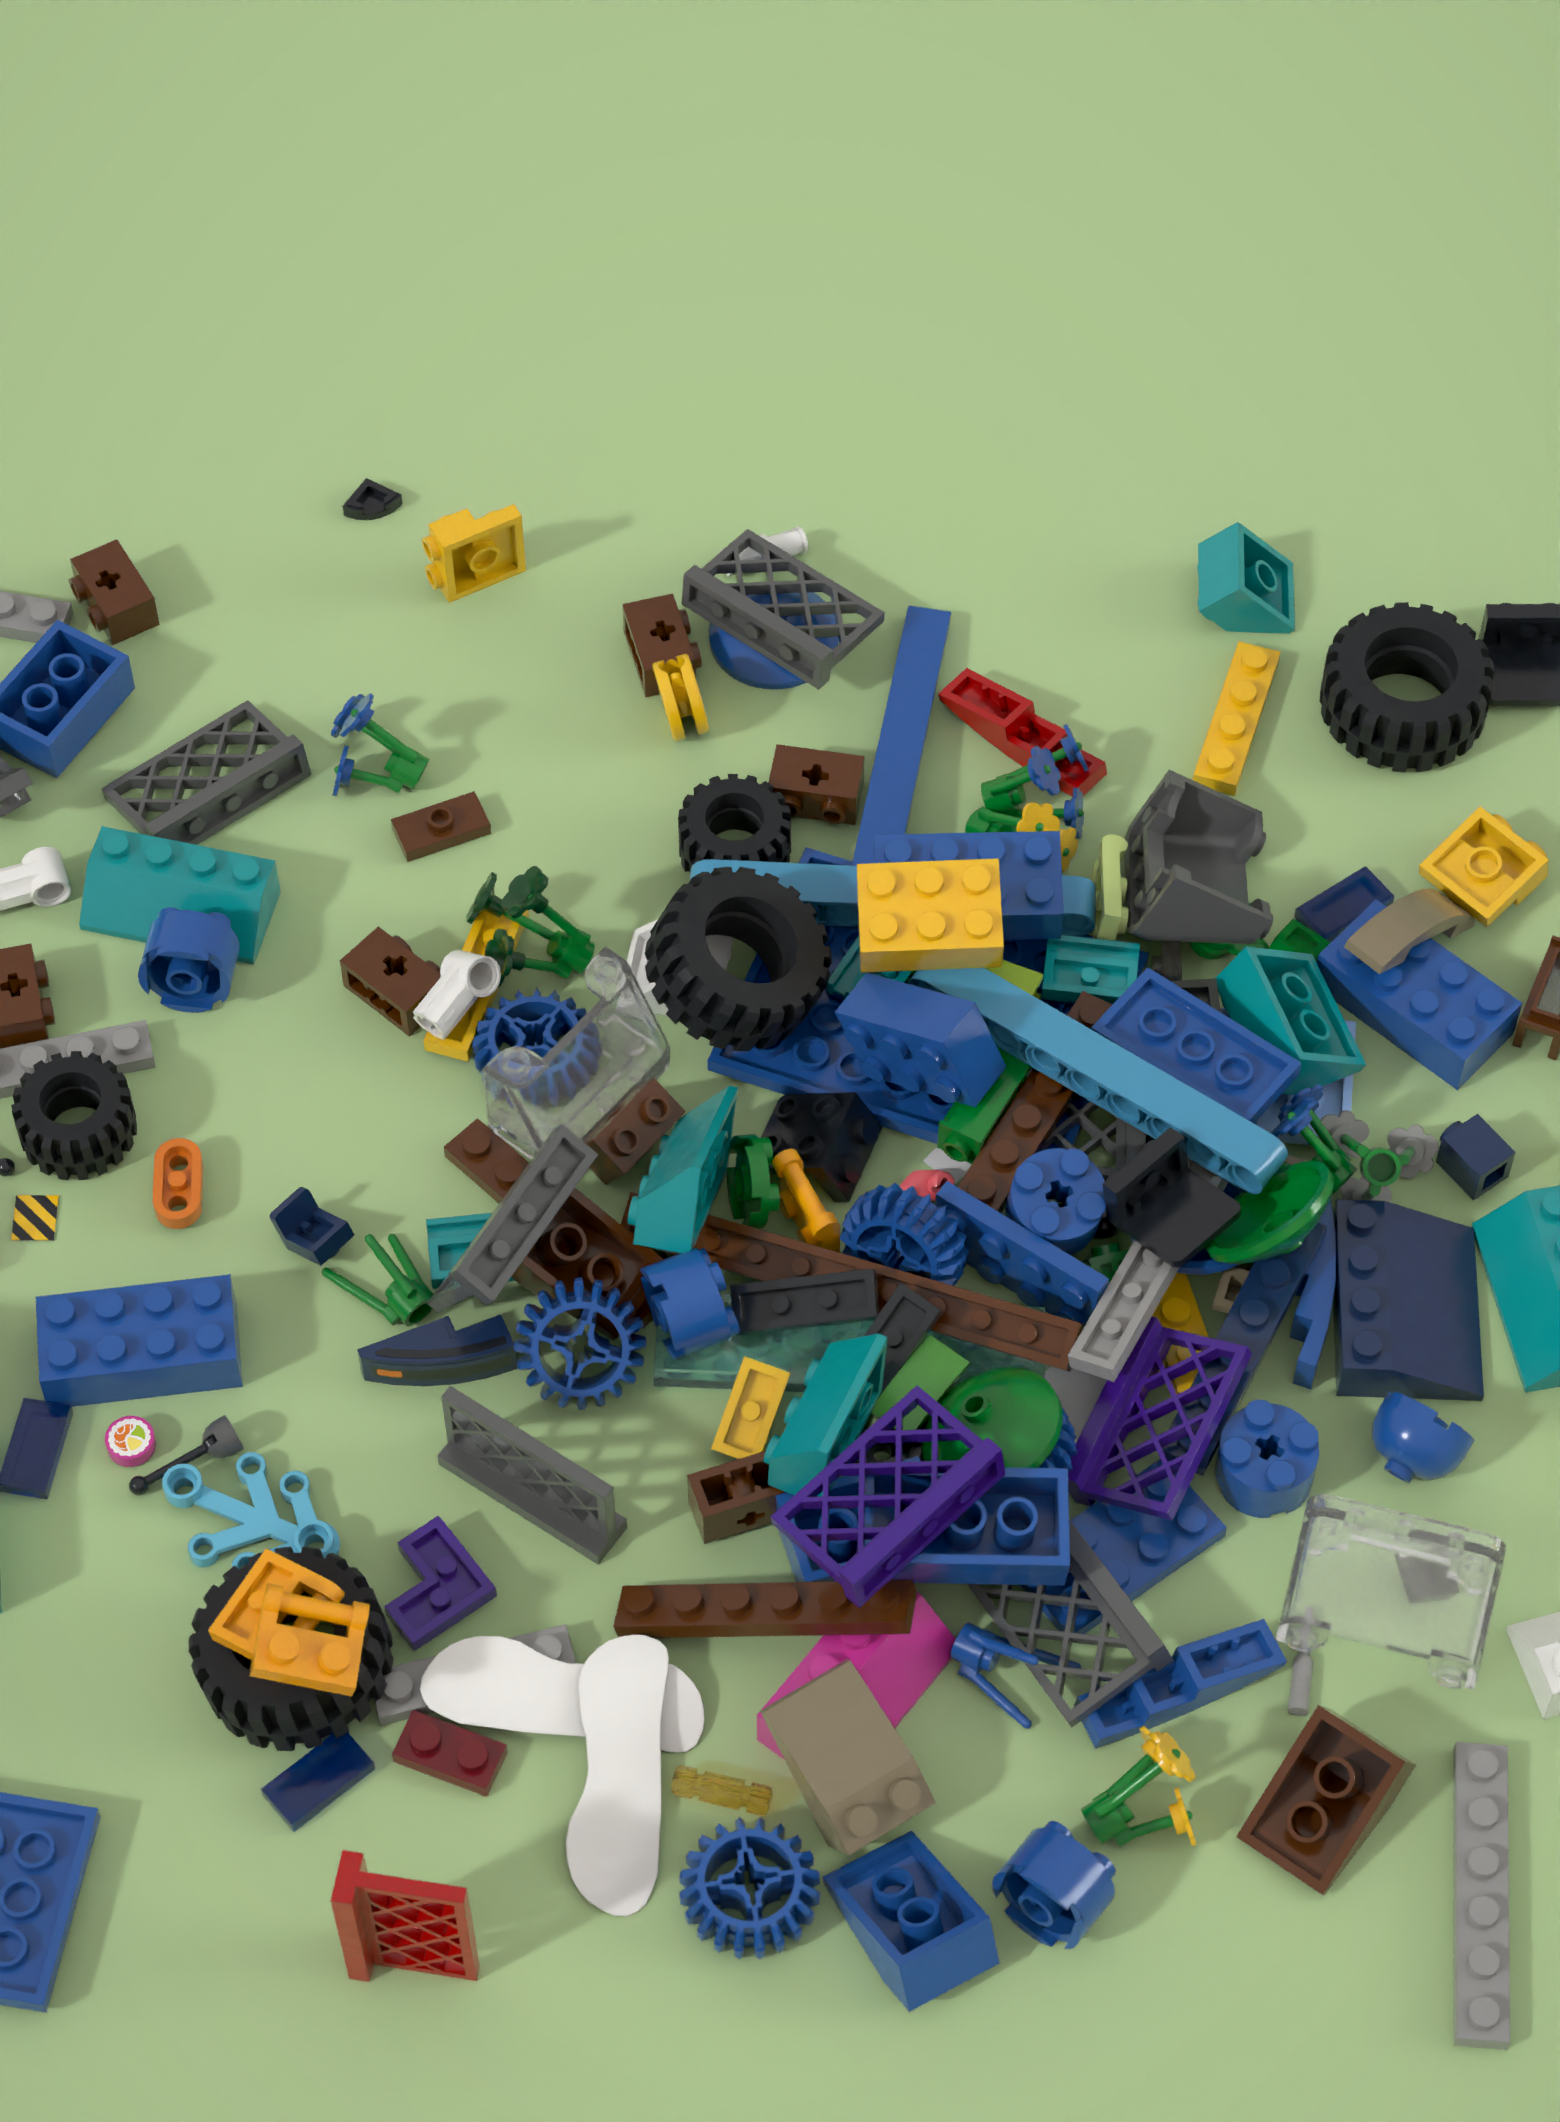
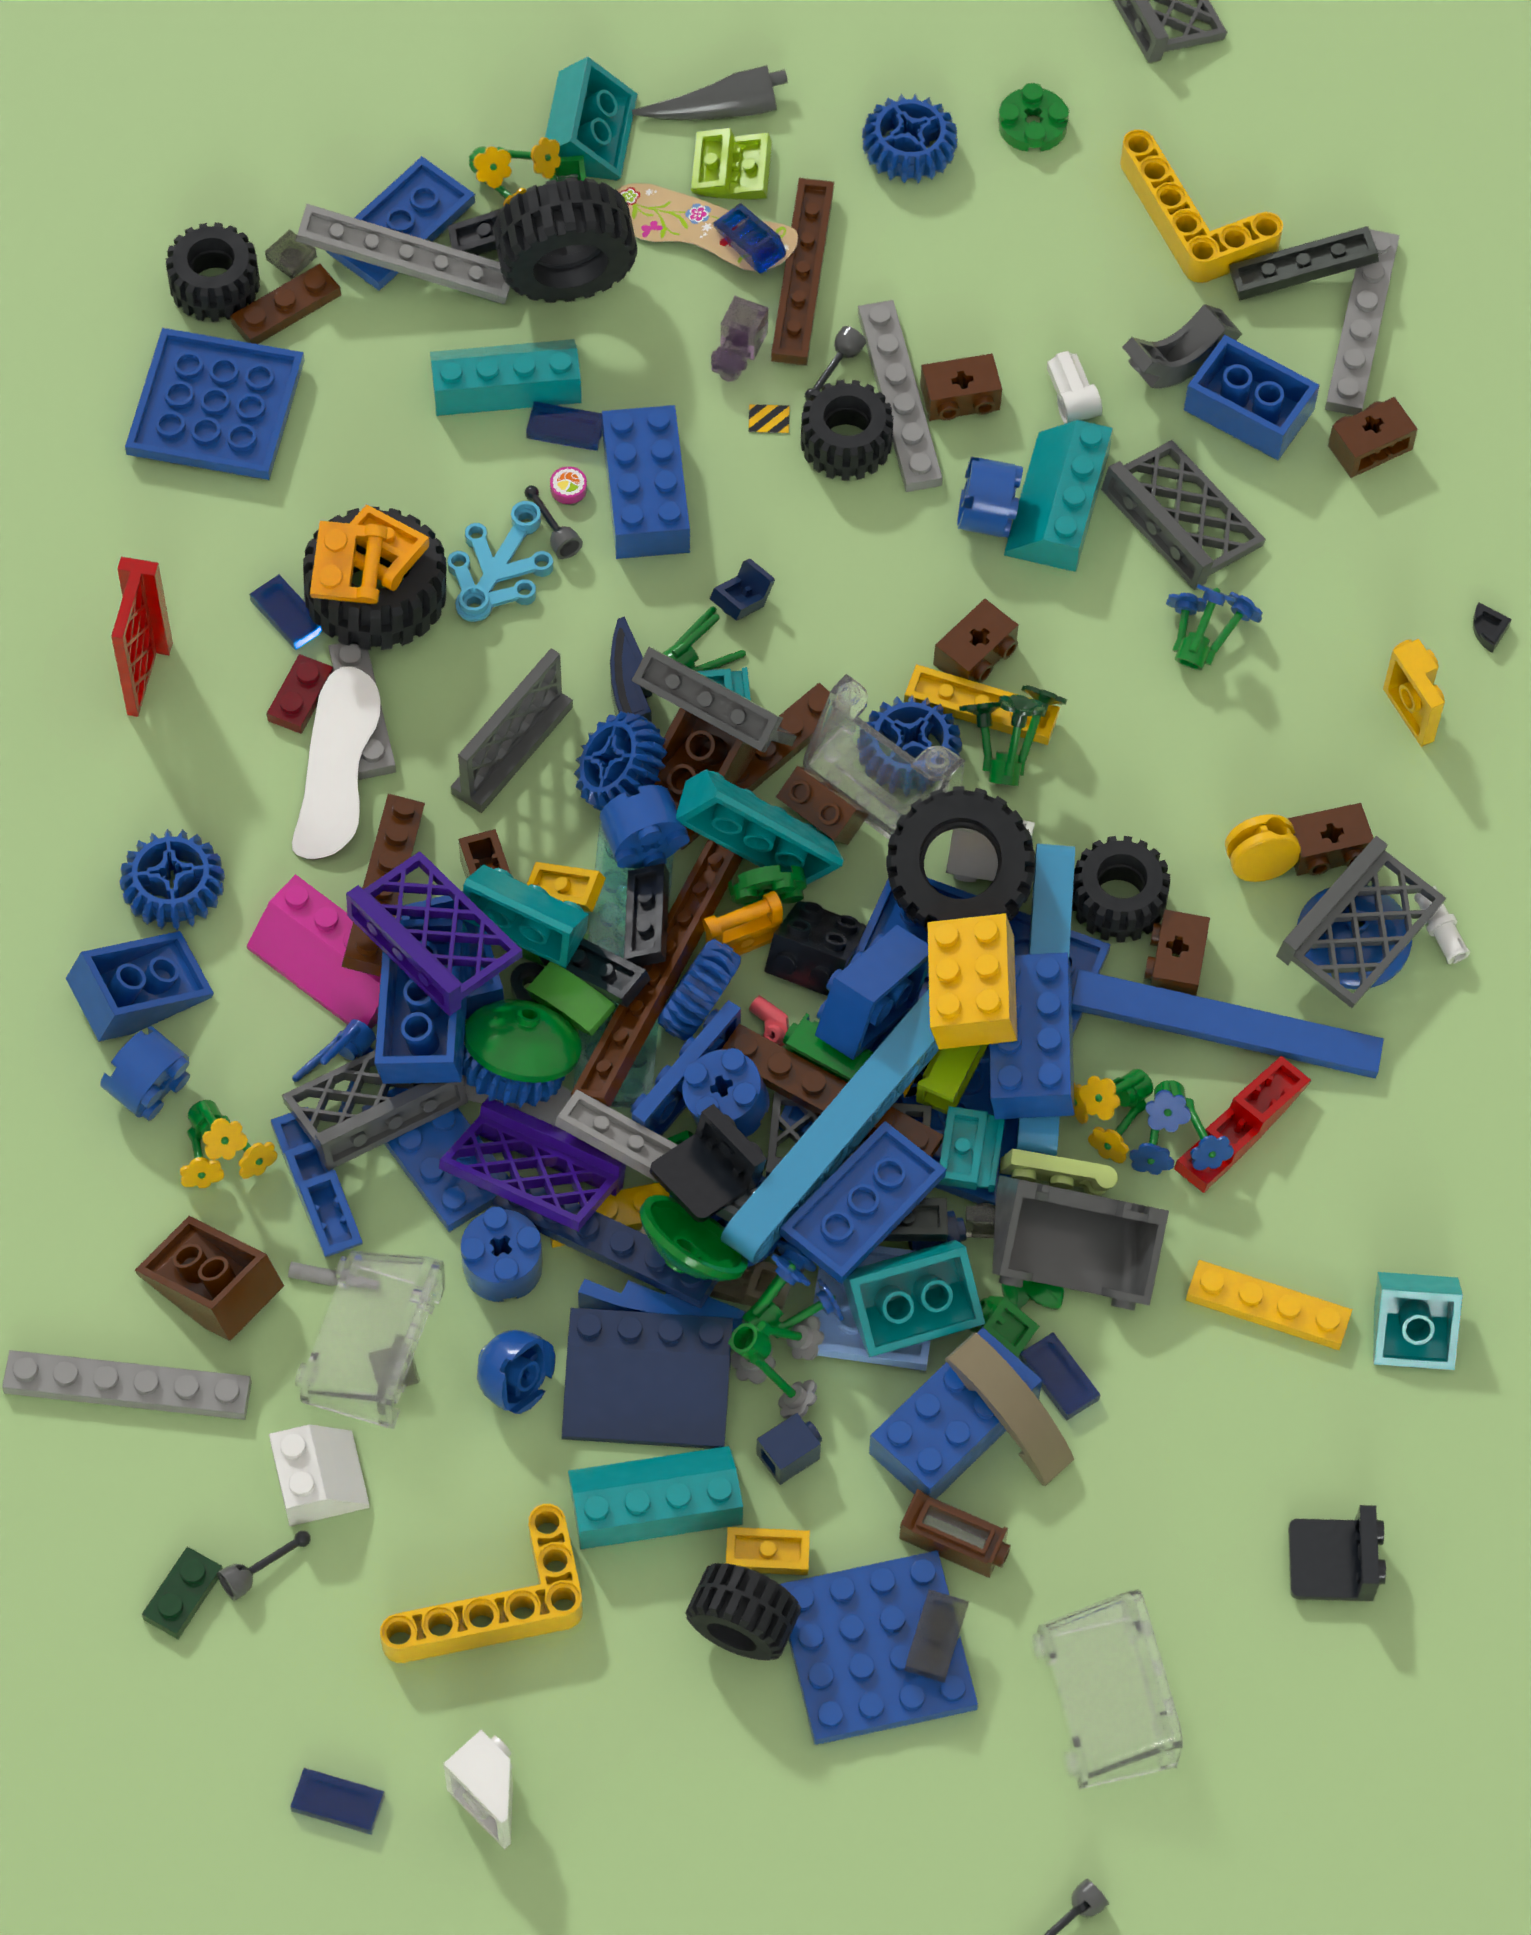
camera: 90 degrees right, 5 degrees up
(178, 1187) = (789, 502): orange plate -> none
(441, 826) = (1138, 681): reddish brown plate -> none
(449, 1585) = (433, 690): dark purple plate -> none
(456, 991) = (949, 676): white piece -> none
(618, 1818) = (245, 800): white sticker -> none
(721, 1790) = (254, 867): clear yellow axle -> none
(847, 1759) = (253, 933): dark tan slope -> none
(1413, 644) = (1297, 1389): black tyre -> none
(1485, 866) = (1092, 1489): yellow plate -> none

